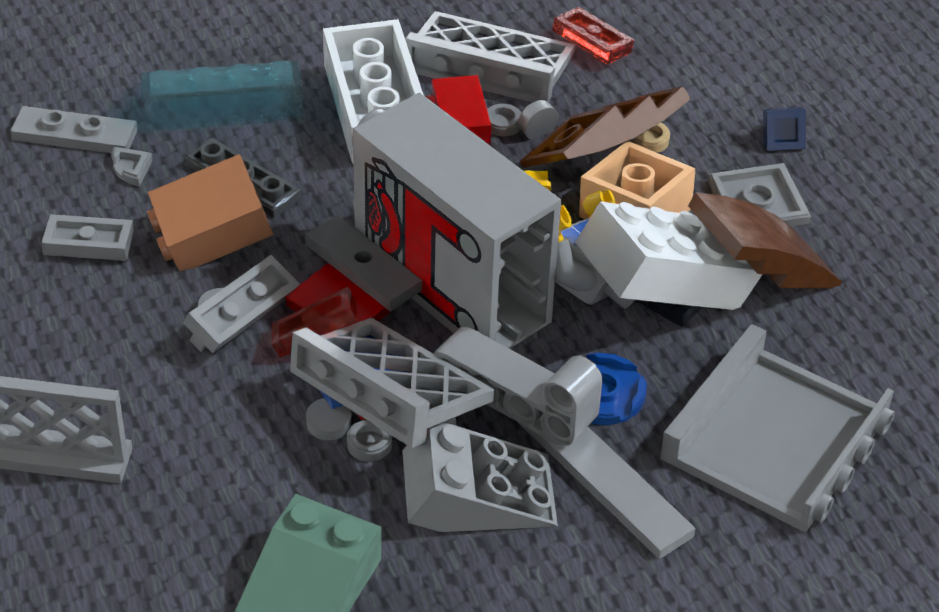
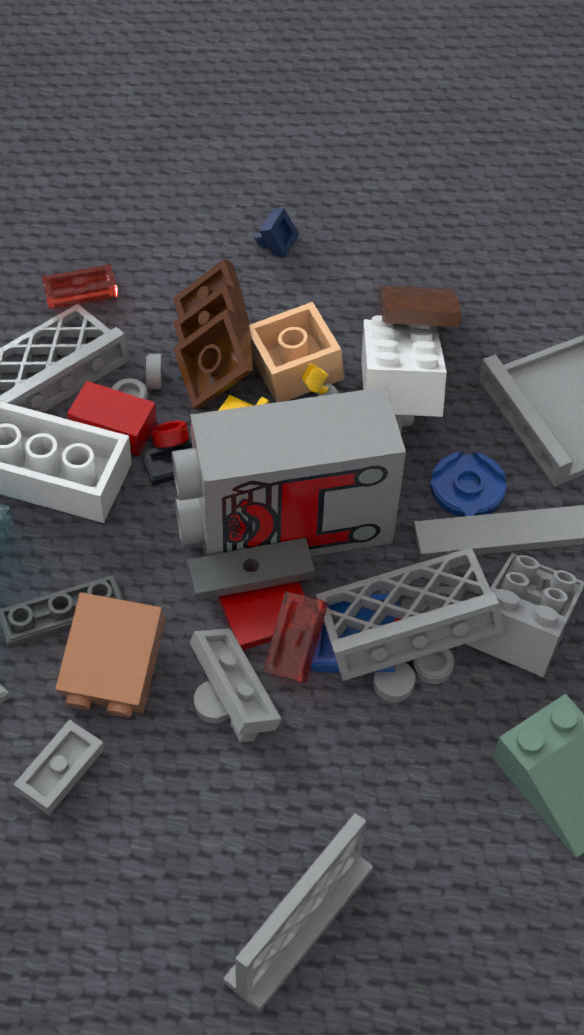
camera: 60 degrees left, 10 degrees up
(544, 401) = (483, 524): light grey beam -> none
(766, 187) = (334, 288): light grey tile -> none

